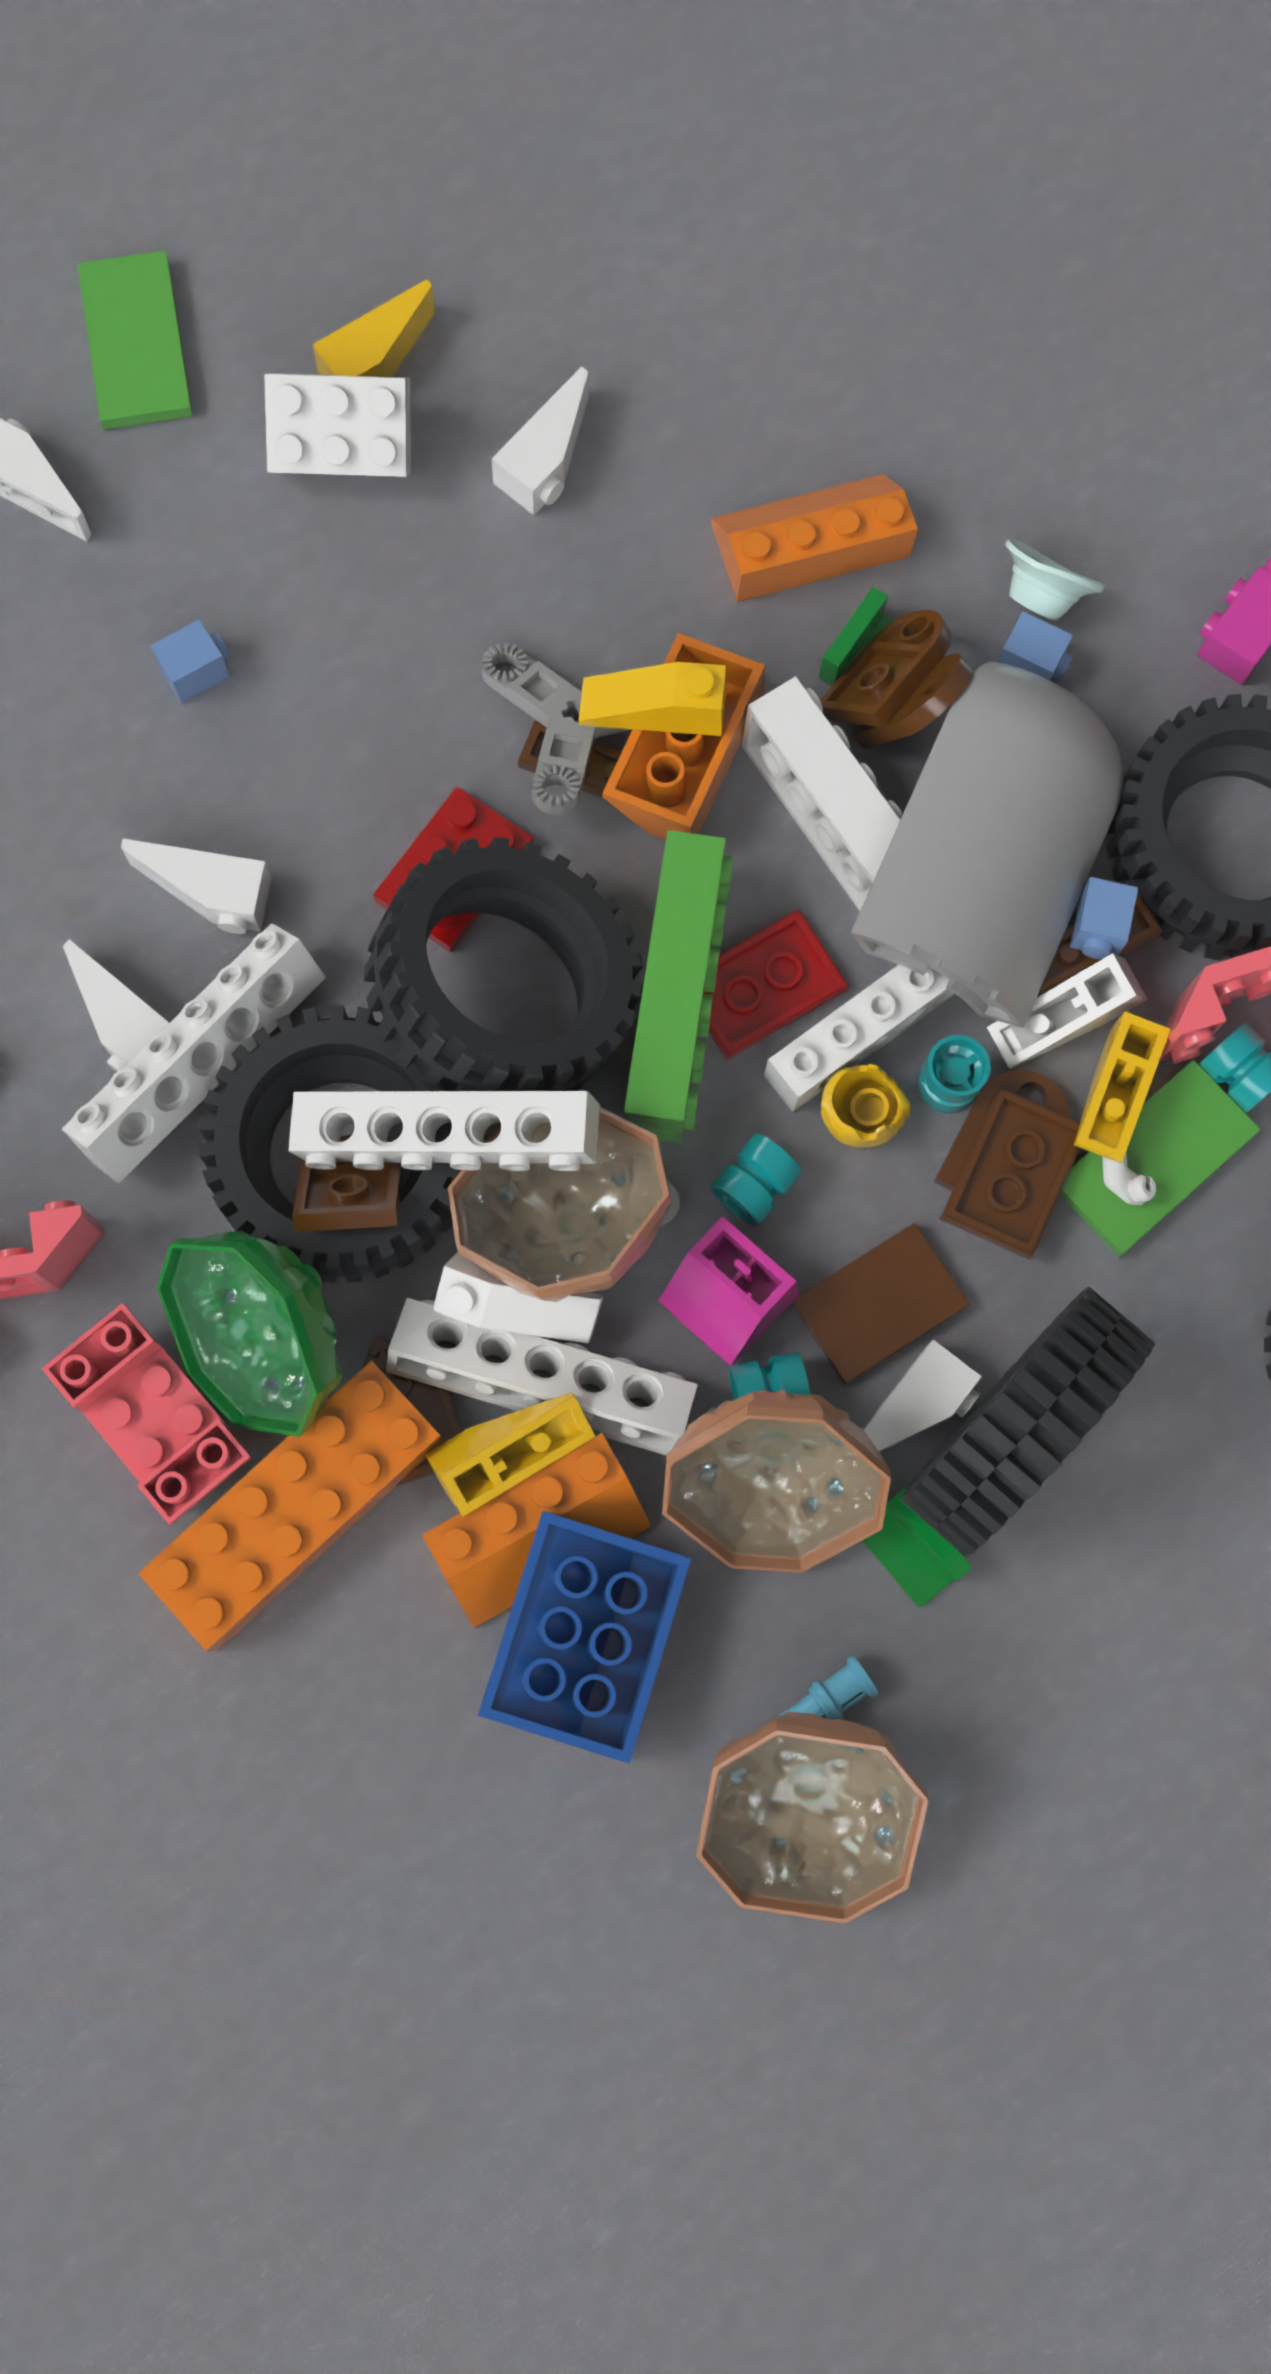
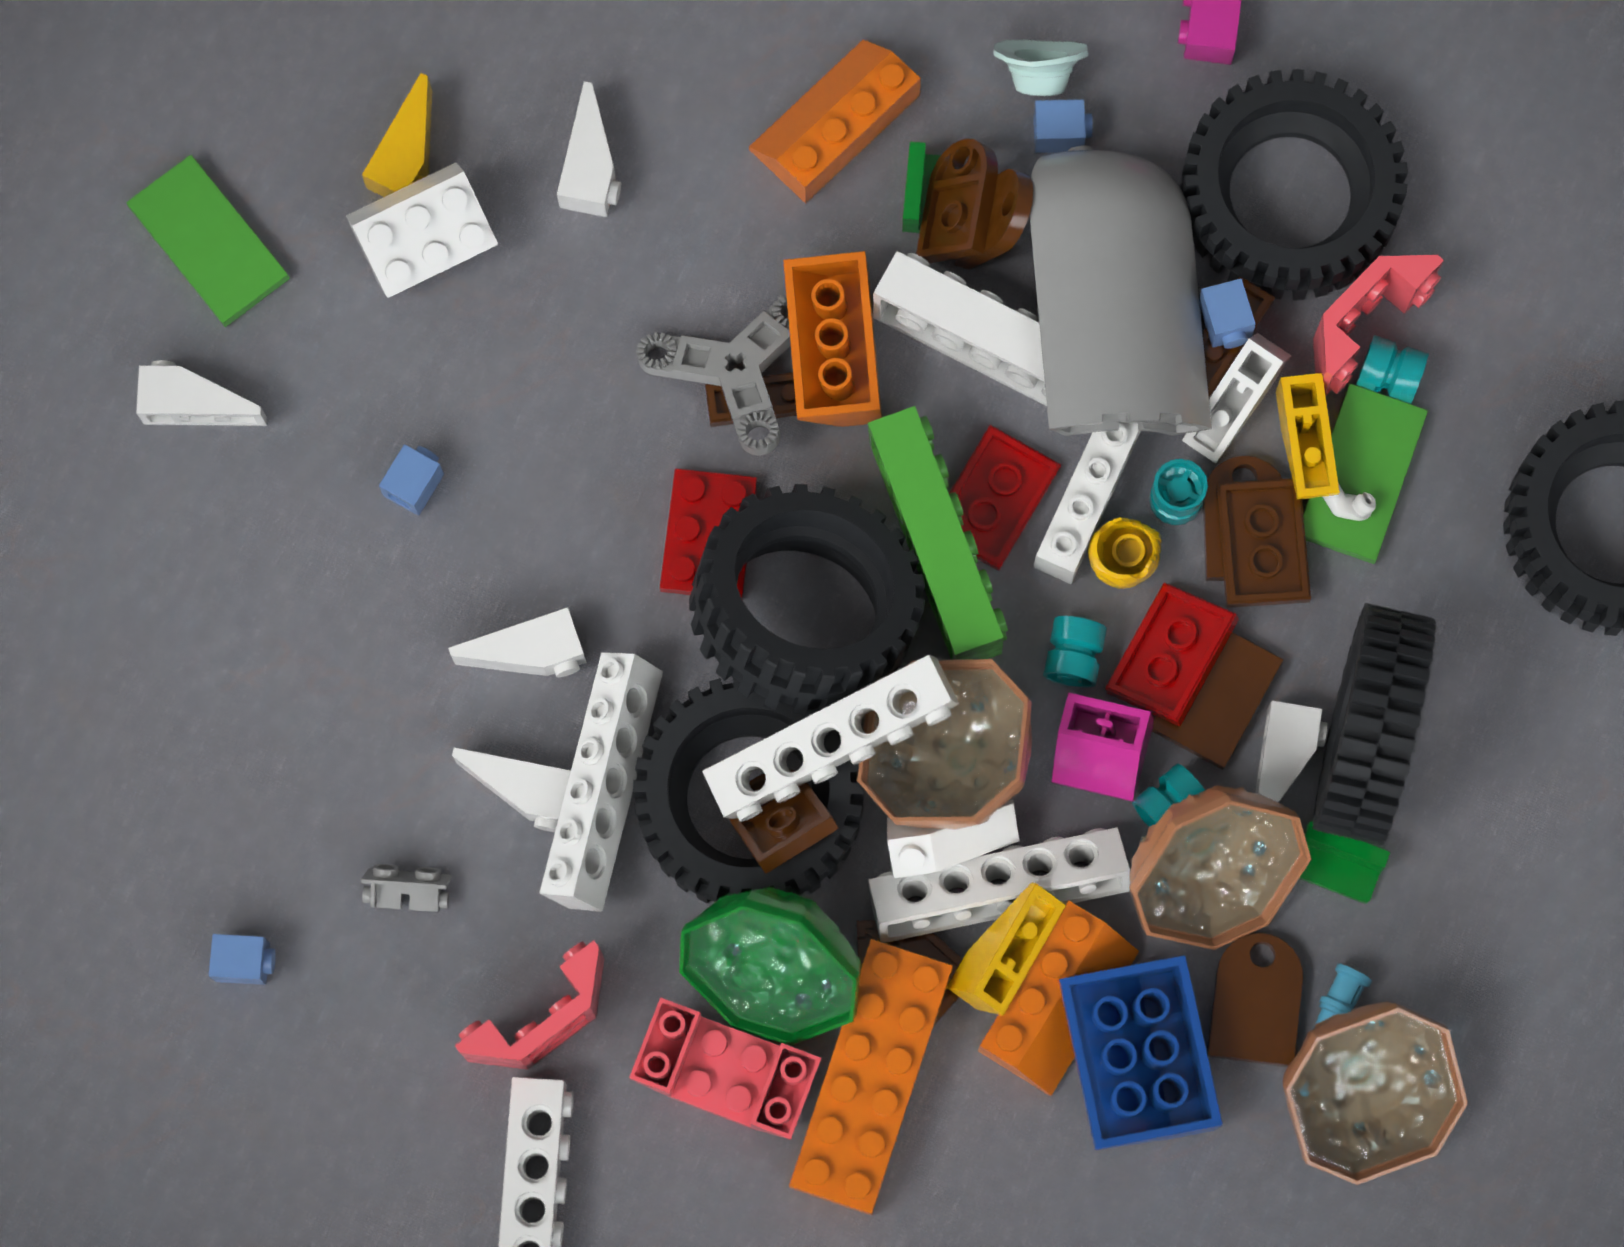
camera: 20 degrees left, 0 degrees up
(657, 698) = (799, 324): yellow slope -> none
(741, 1651) = (1255, 1005): none -> reddish brown tile
(856, 1236) = (1172, 654): none -> red tile

